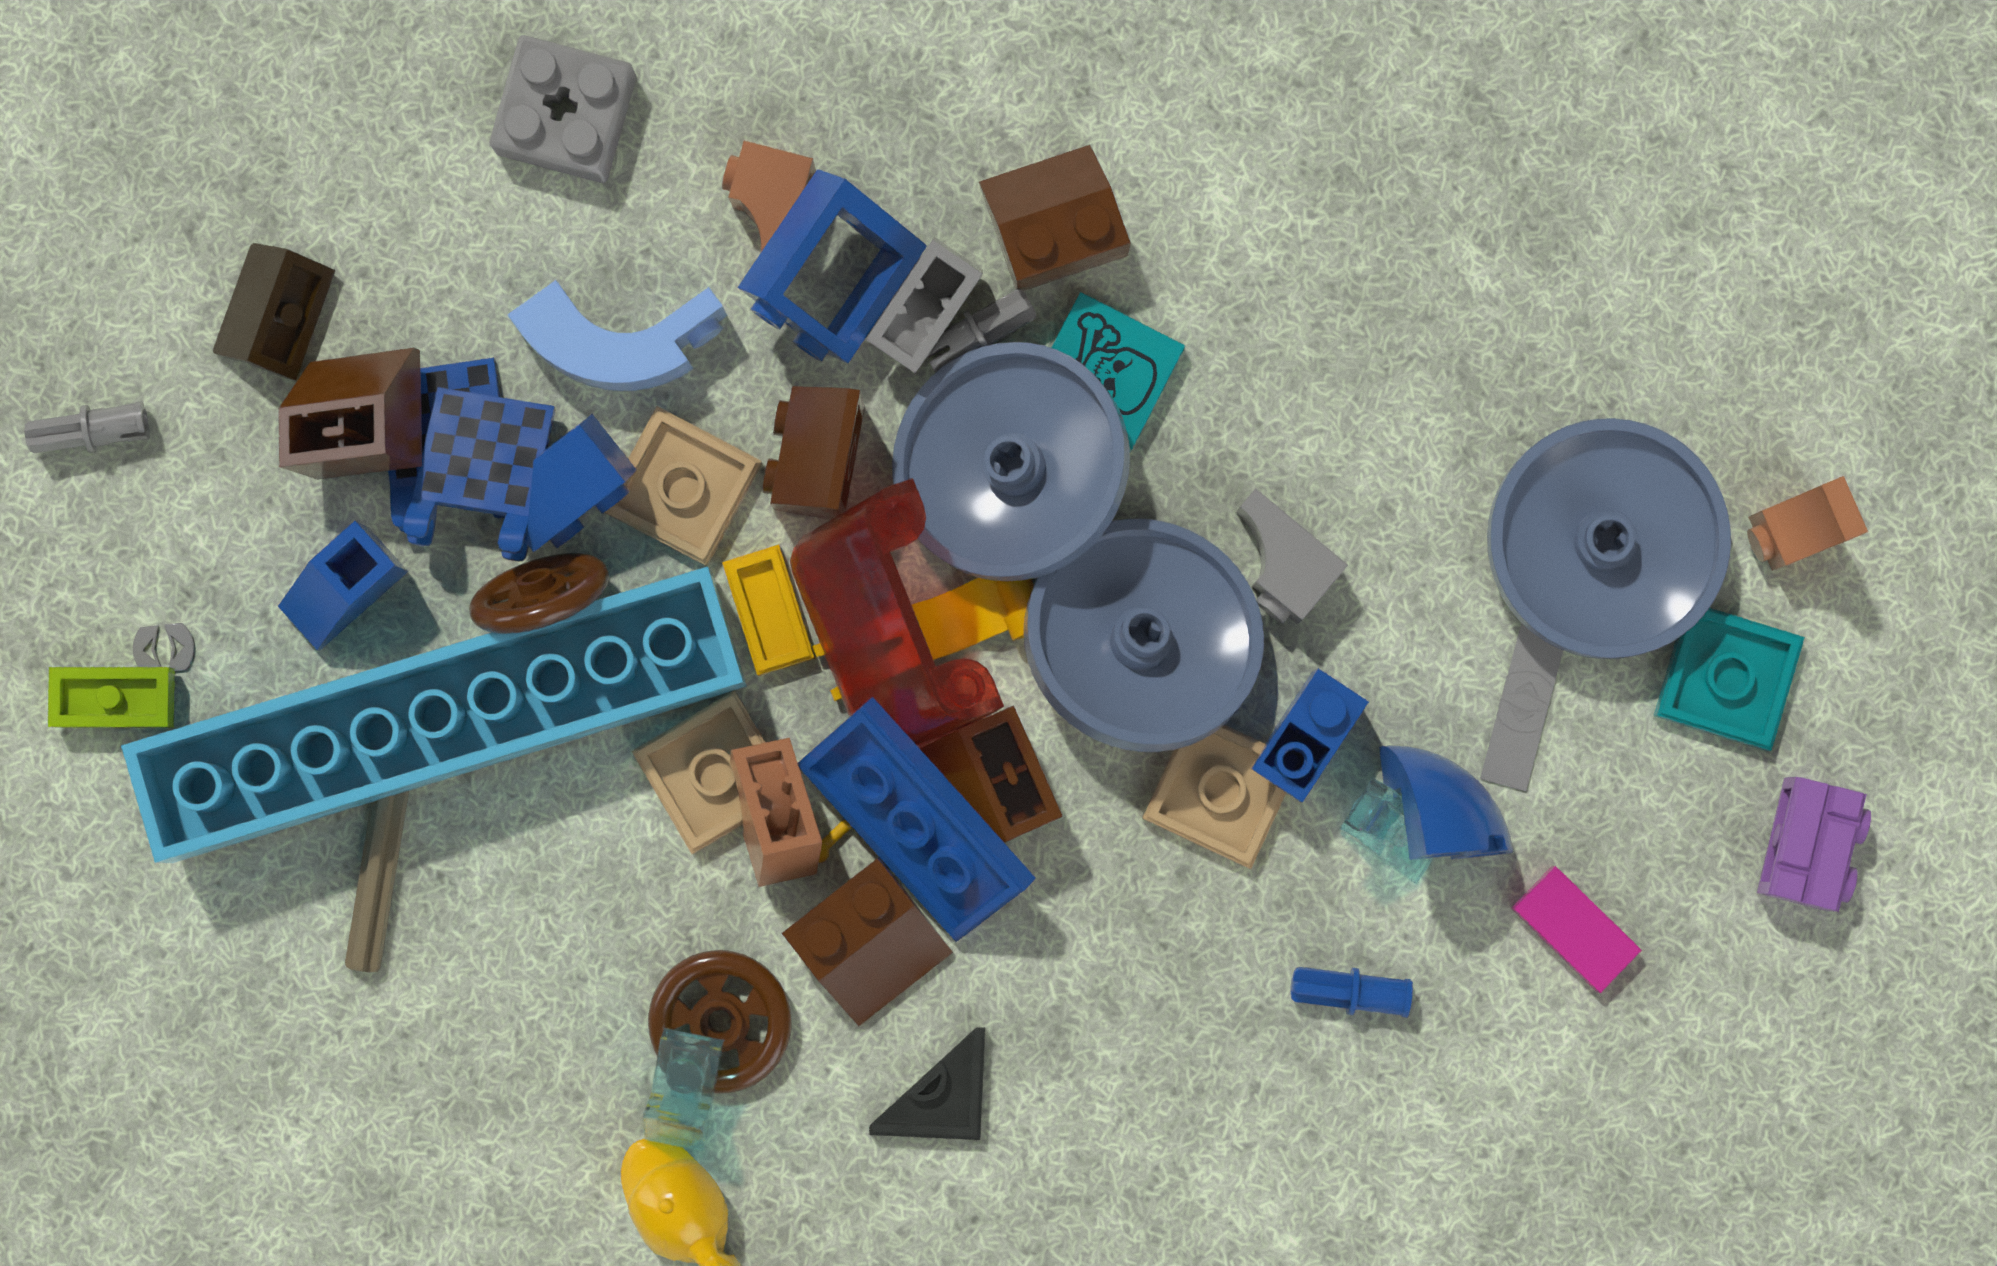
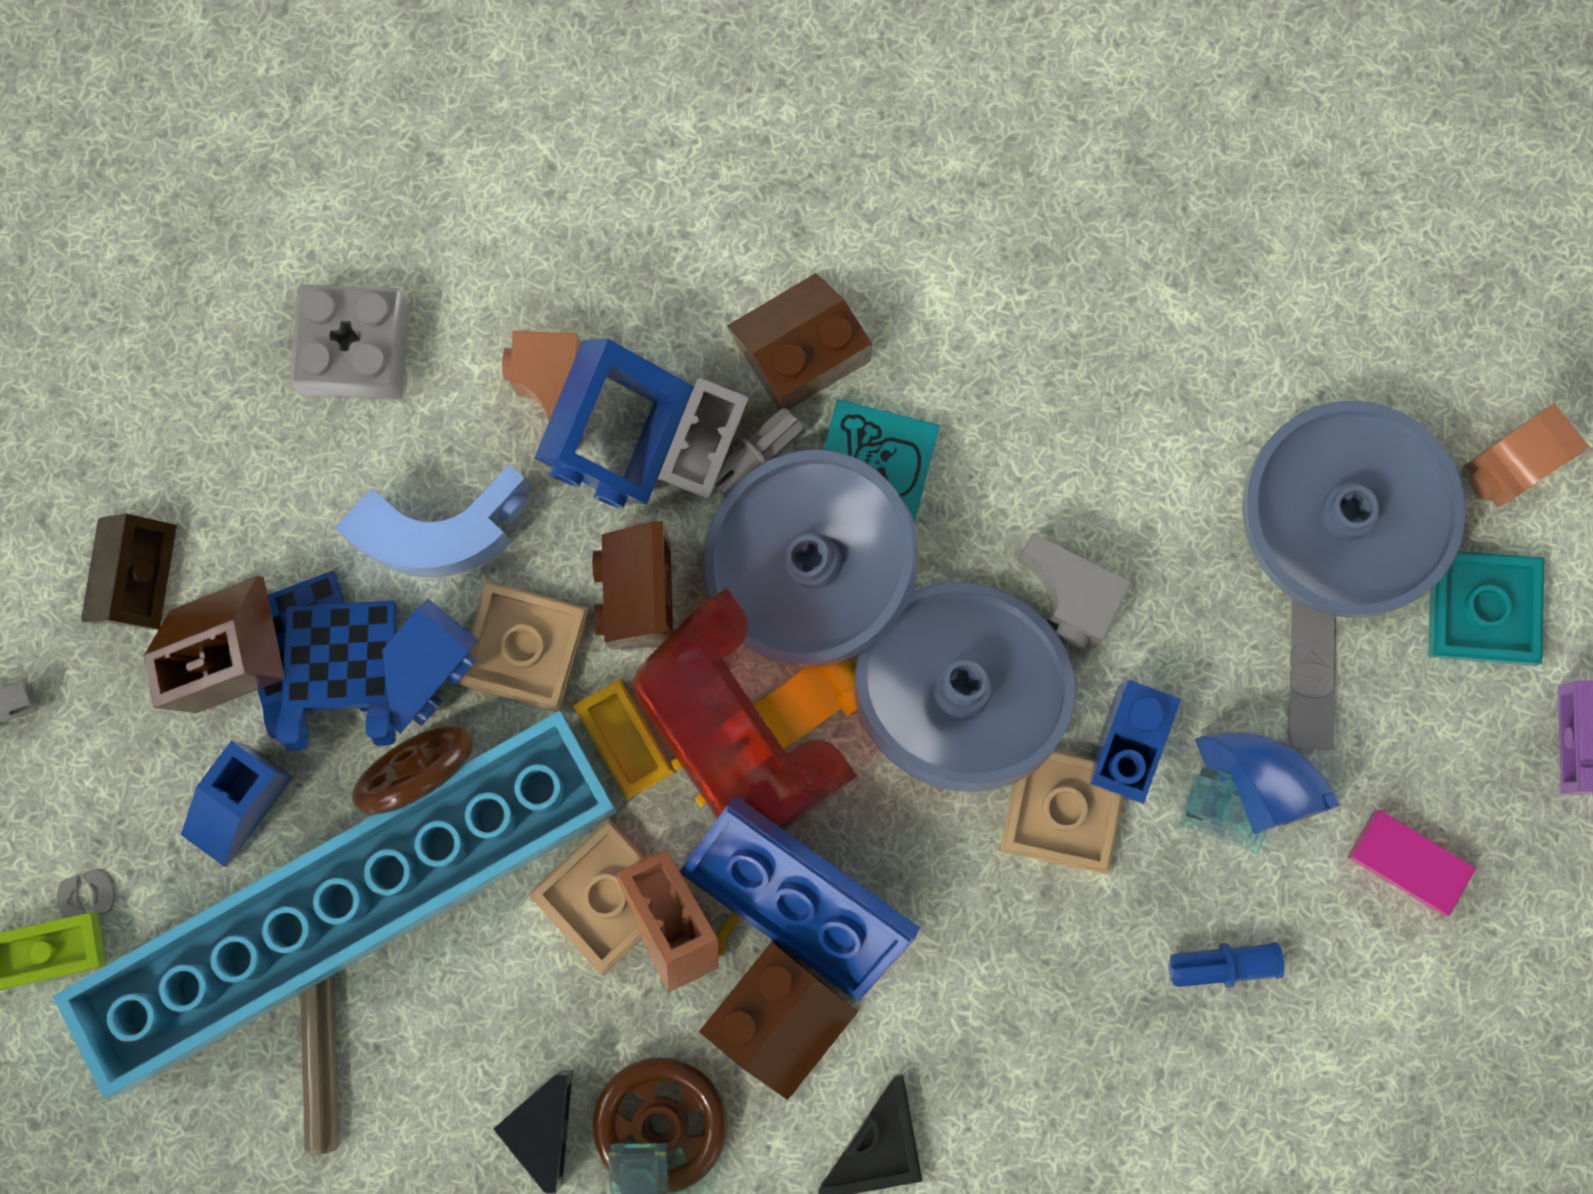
camera: 10 degrees left, 5 degrees down
(594, 998) = (539, 1131): none -> black slope
(997, 774) = (863, 840): reddish brown slope -> none

